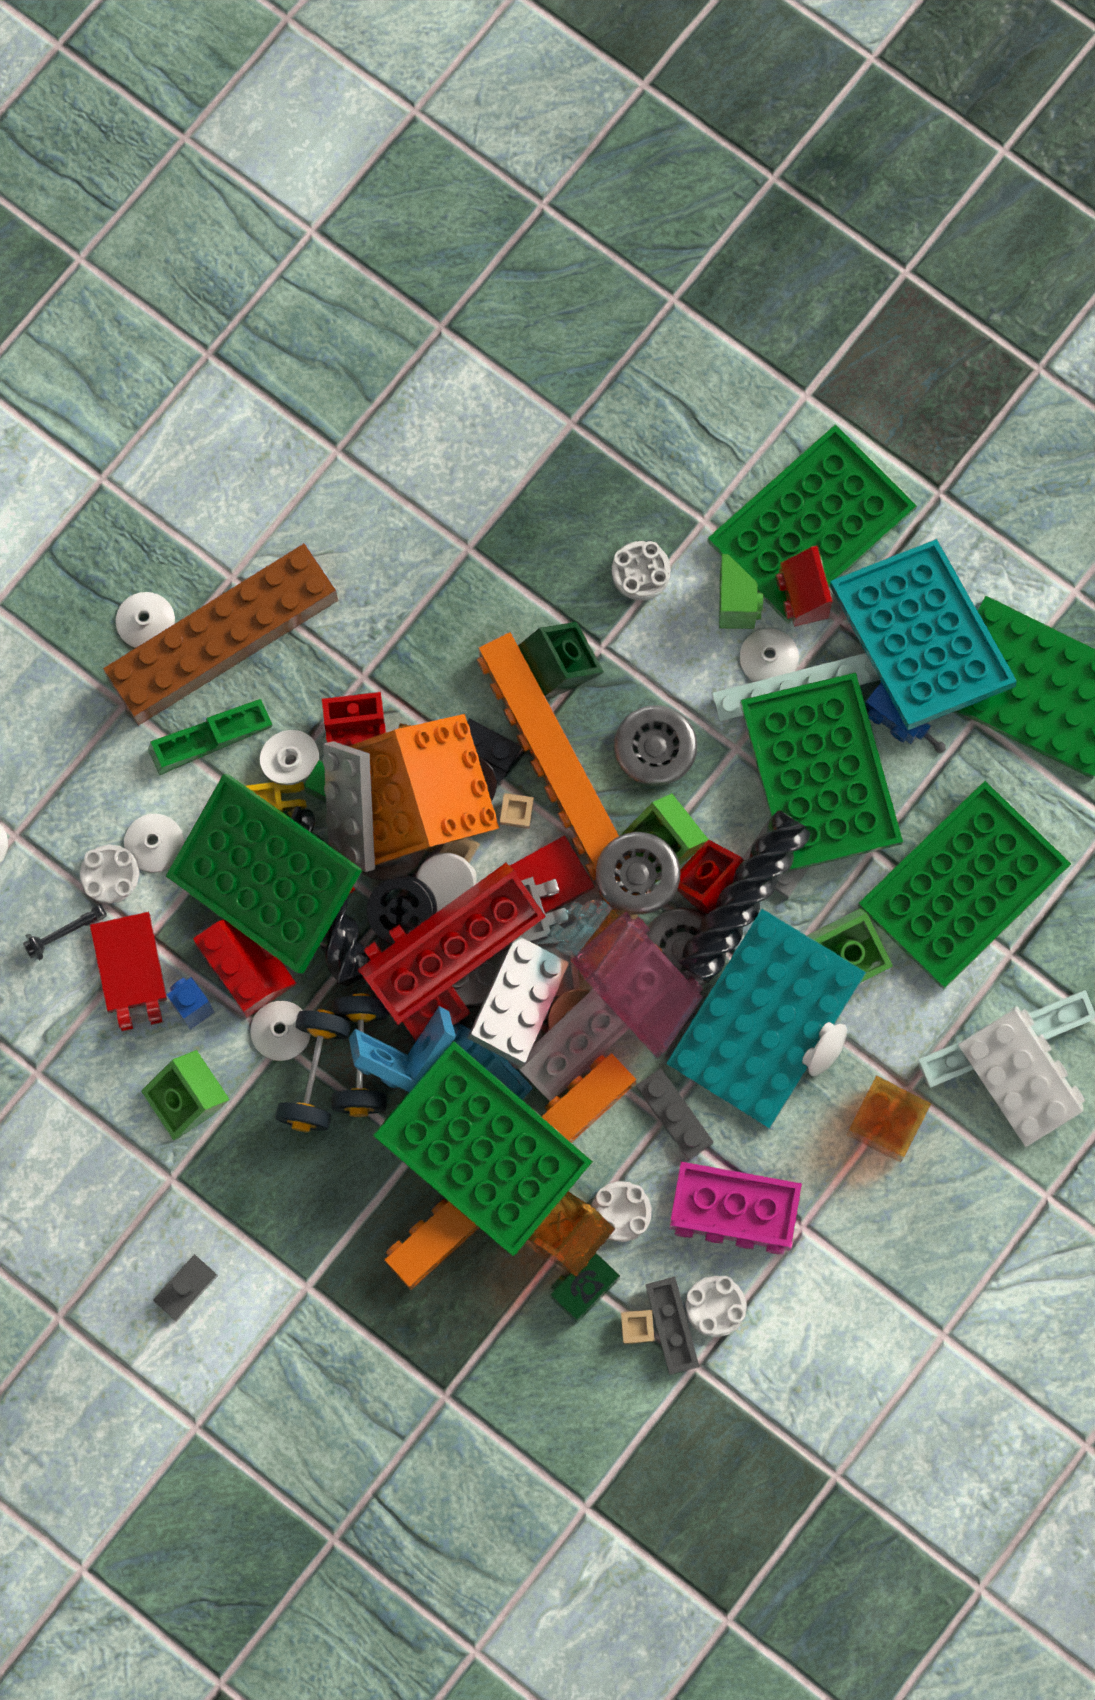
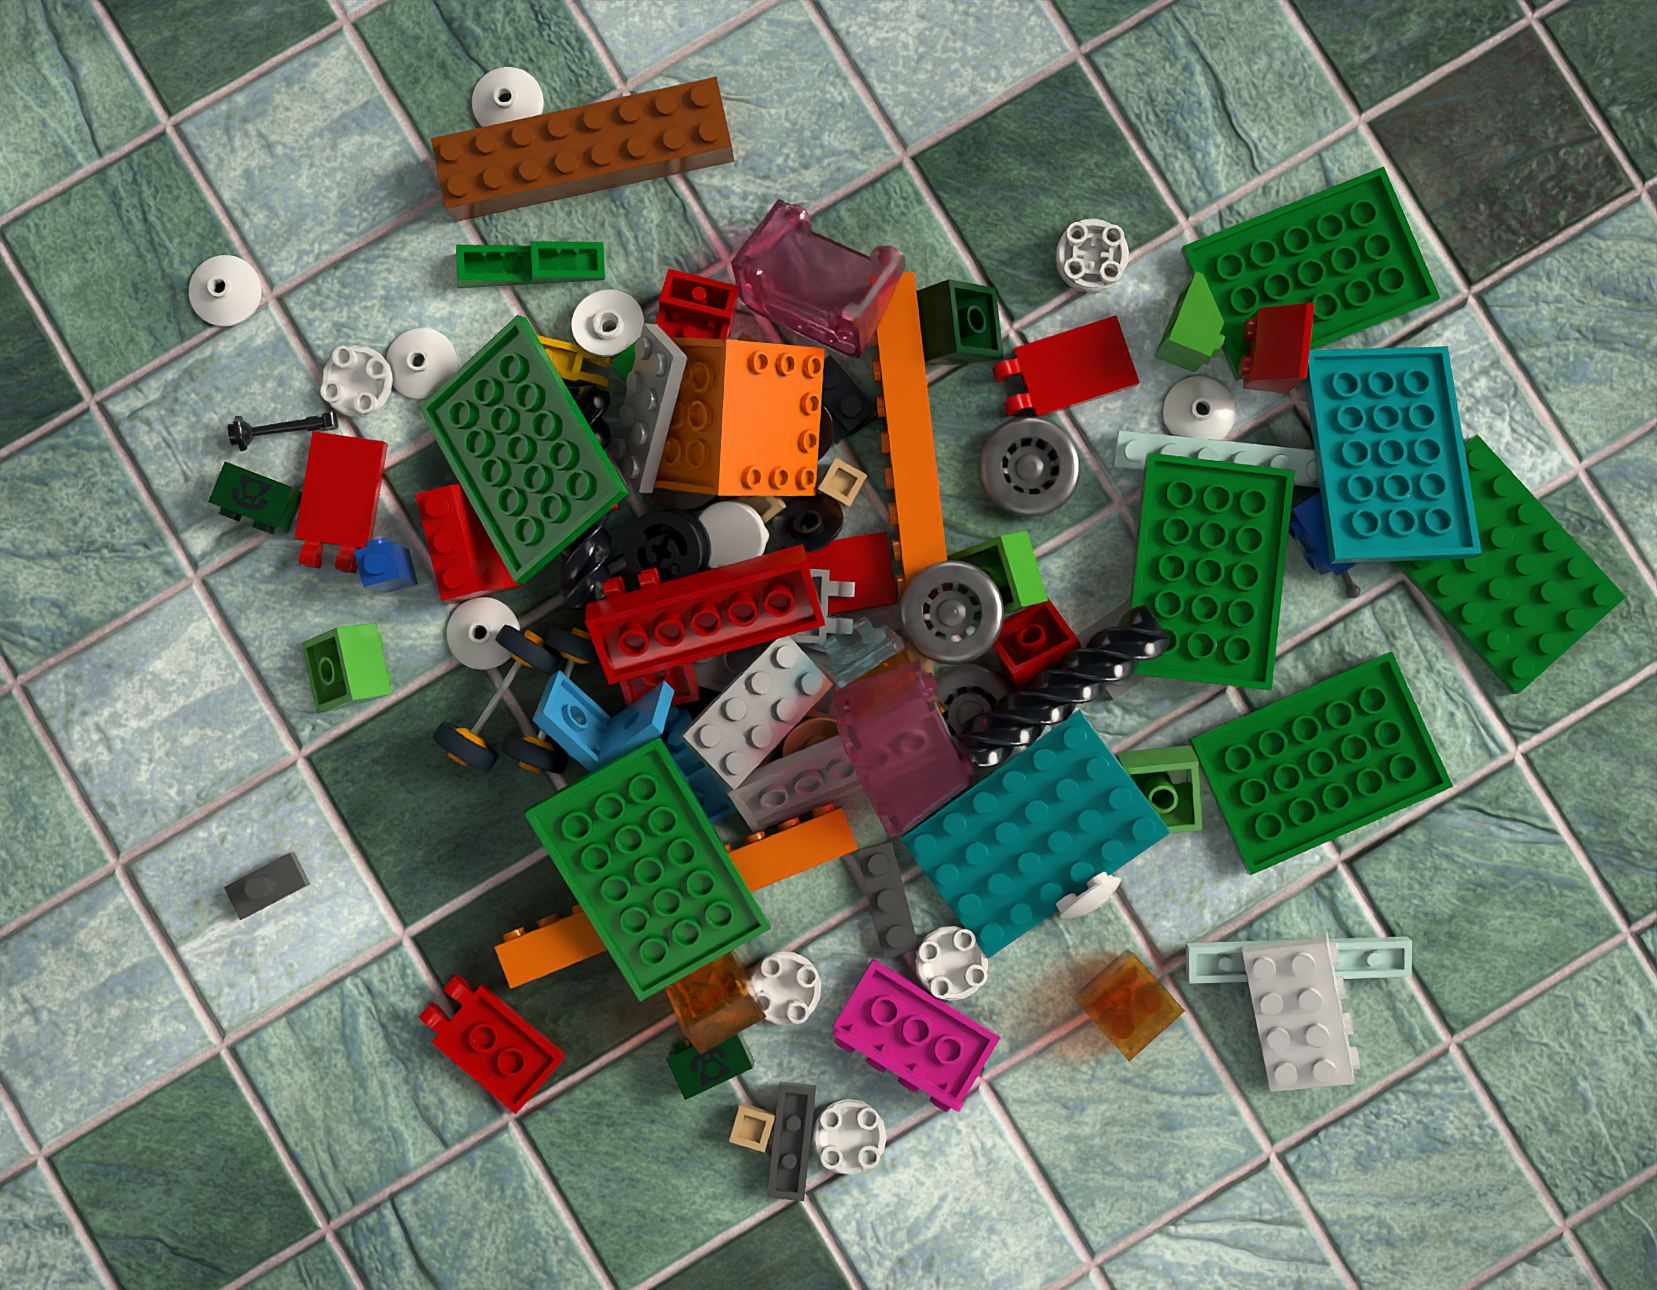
camera: 20 degrees right, 10 degrees up
(65, 991) = (256, 497): none -> dark green brick
(411, 1341) = (493, 1043): none -> red tile
(437, 667) = (815, 281): none -> clear pink windscreen
(501, 846) = (808, 521): none -> black dish
(657, 661) = (1069, 368): none -> red tile
(742, 1143) = (951, 963): none -> white dish

